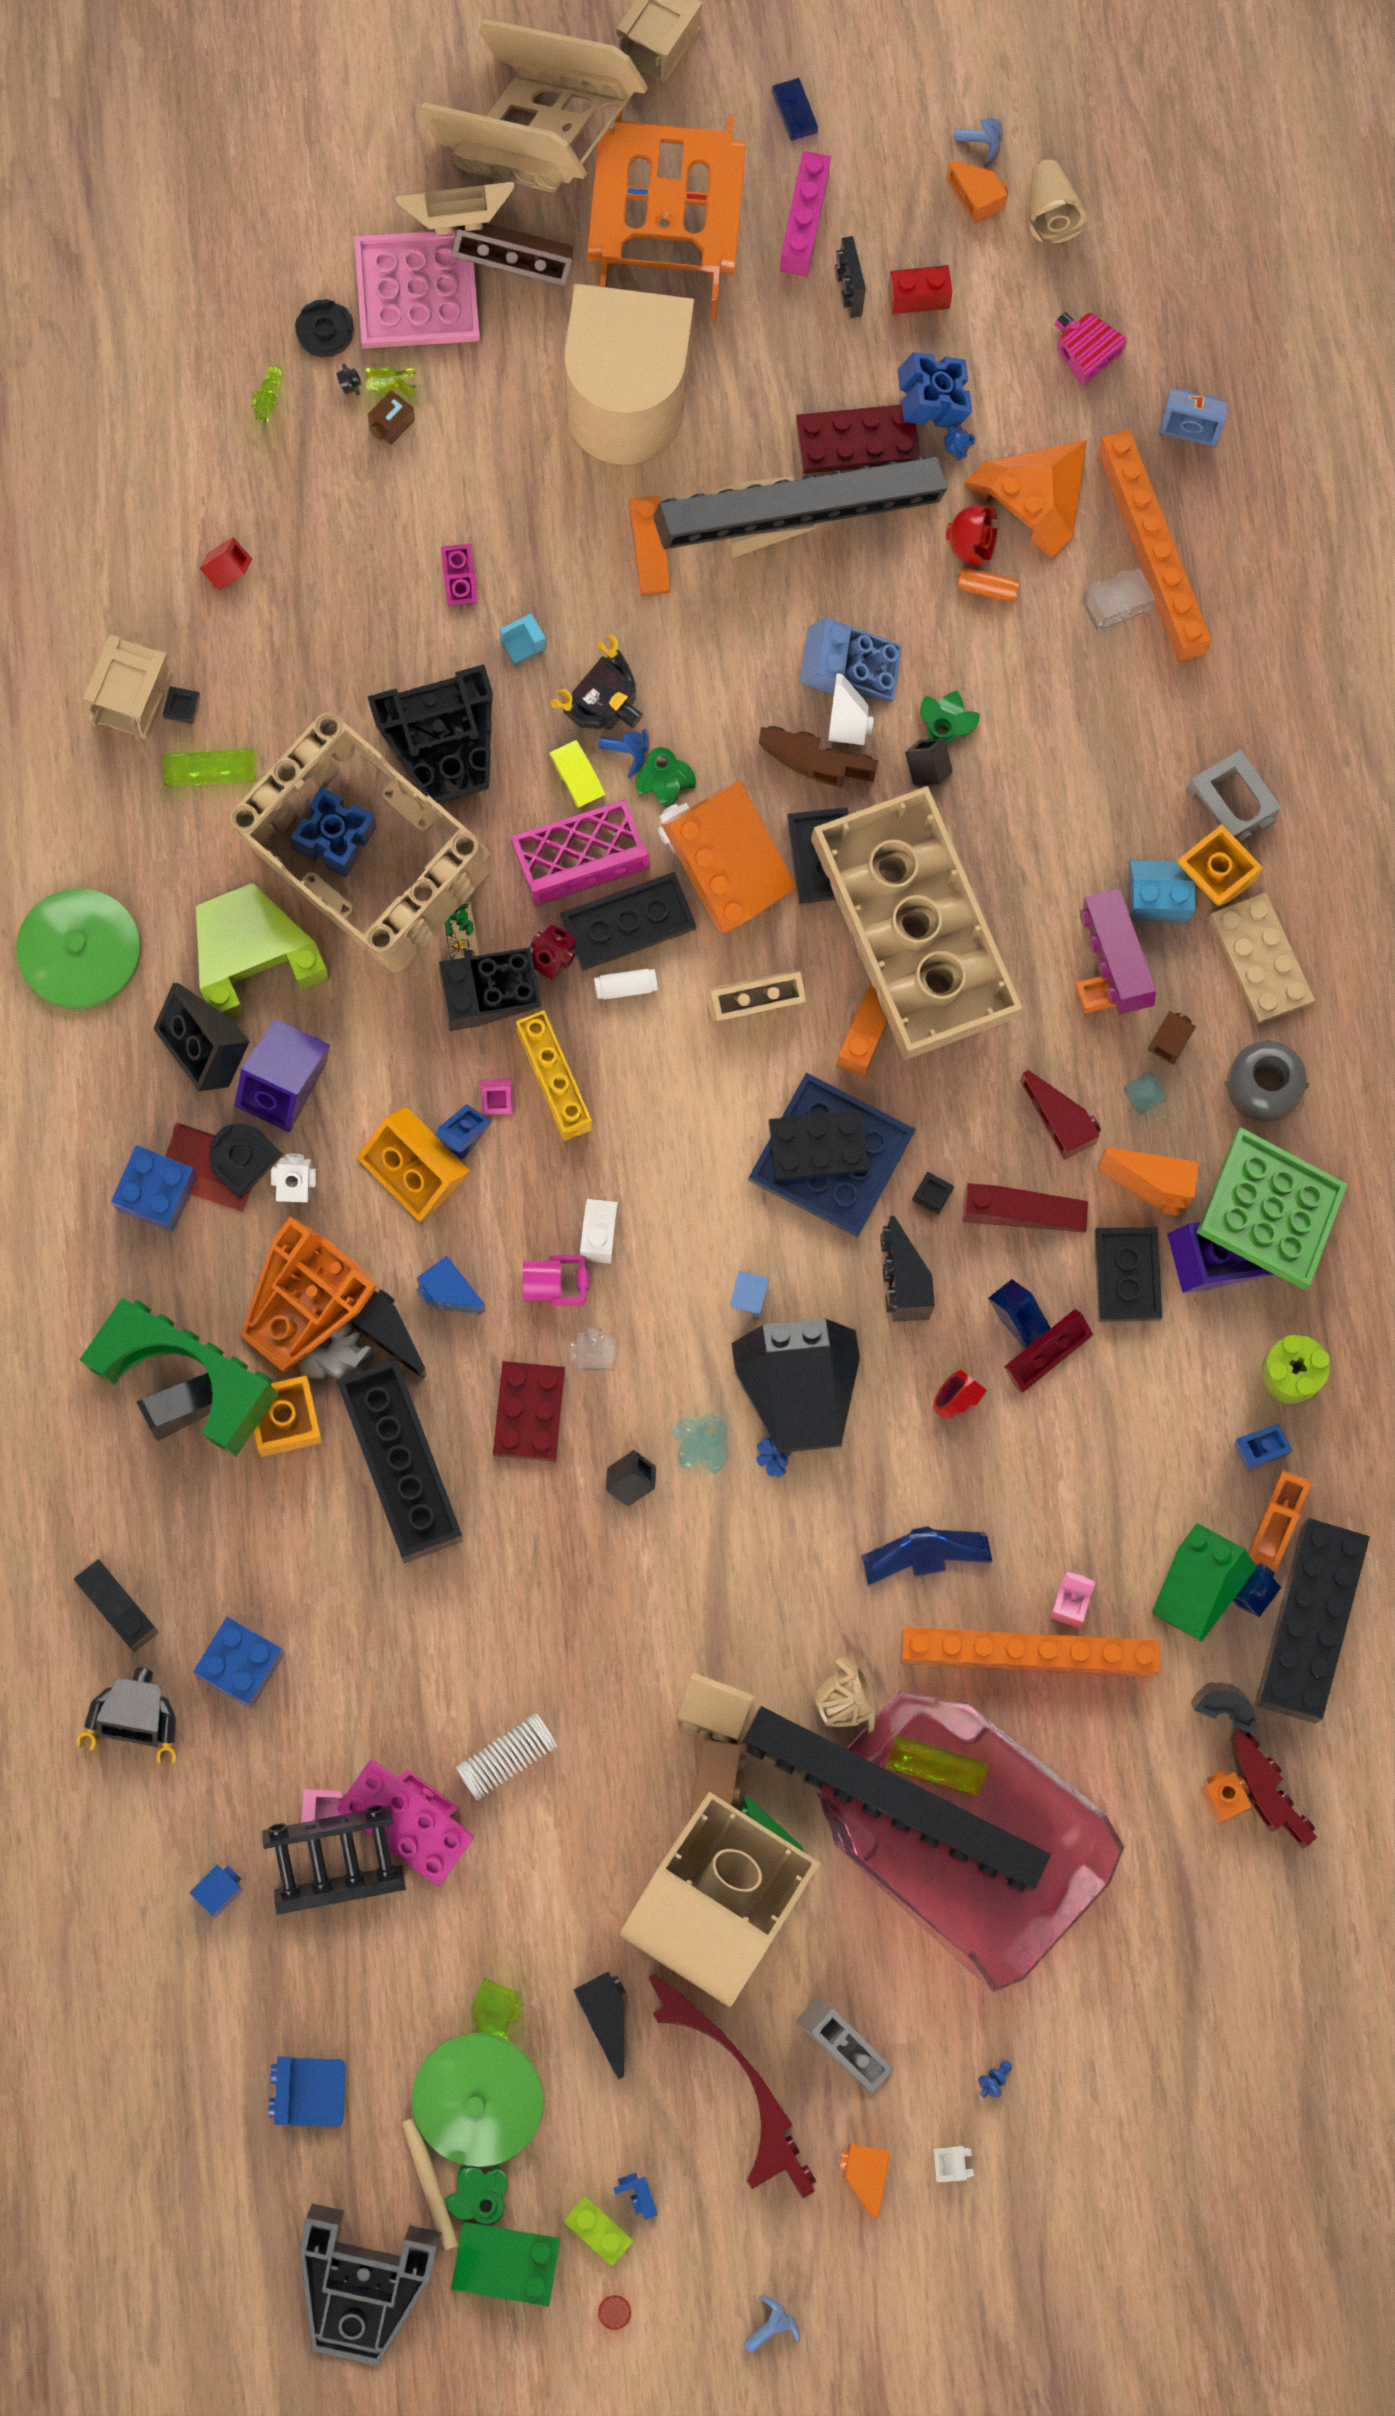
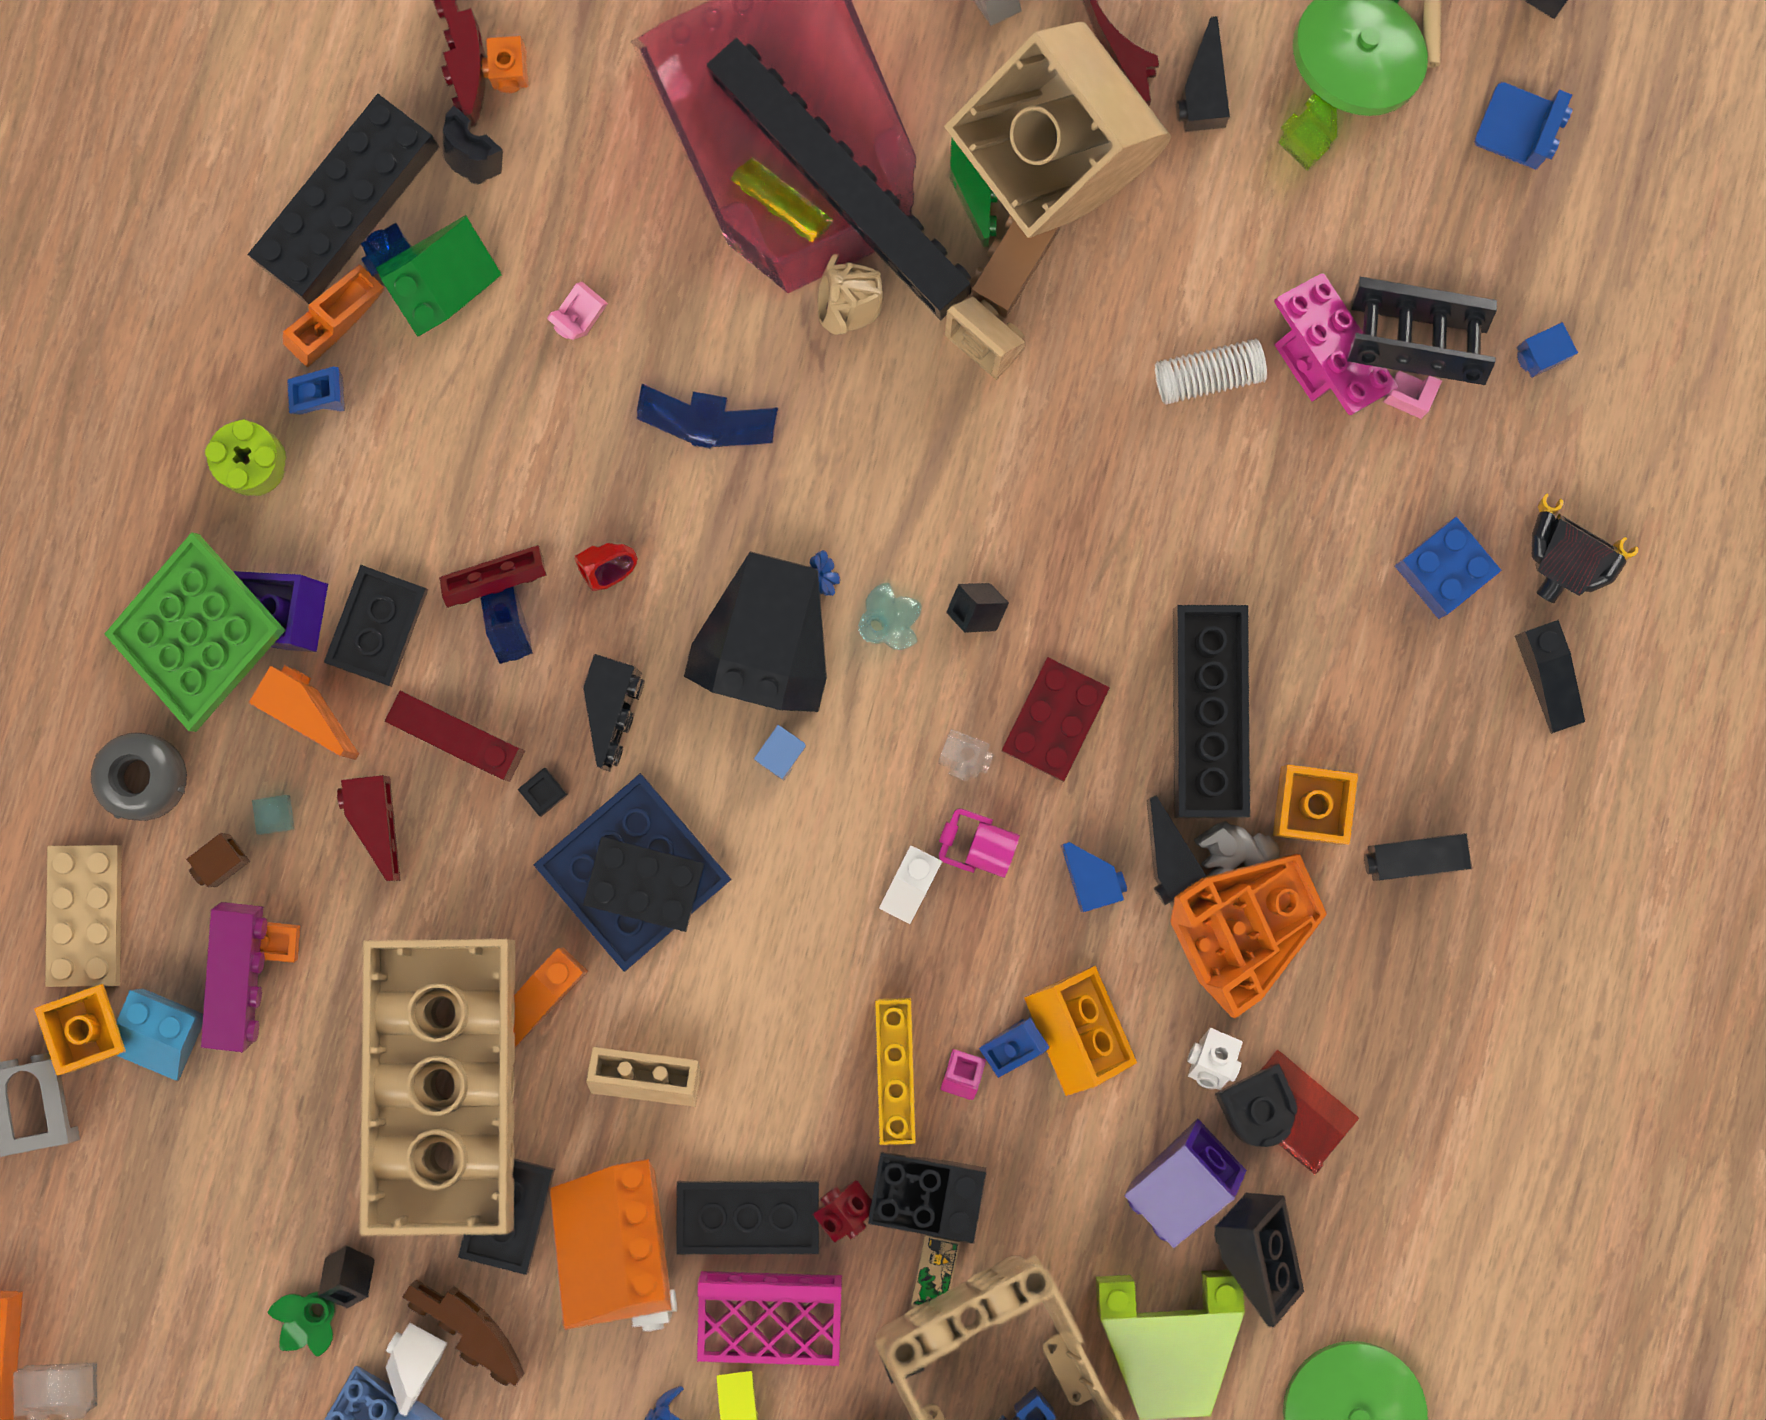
camera: 150 degrees left, 10 degrees up
(135, 1335) = (1362, 838): green arch -> none
(154, 1188) = (1366, 1106): blue brick -> none
(626, 984) = (778, 1146): white piece -> none
(664, 781) = (646, 1366): green plate -> none
(1030, 1652) = (642, 276): orange brick -> none

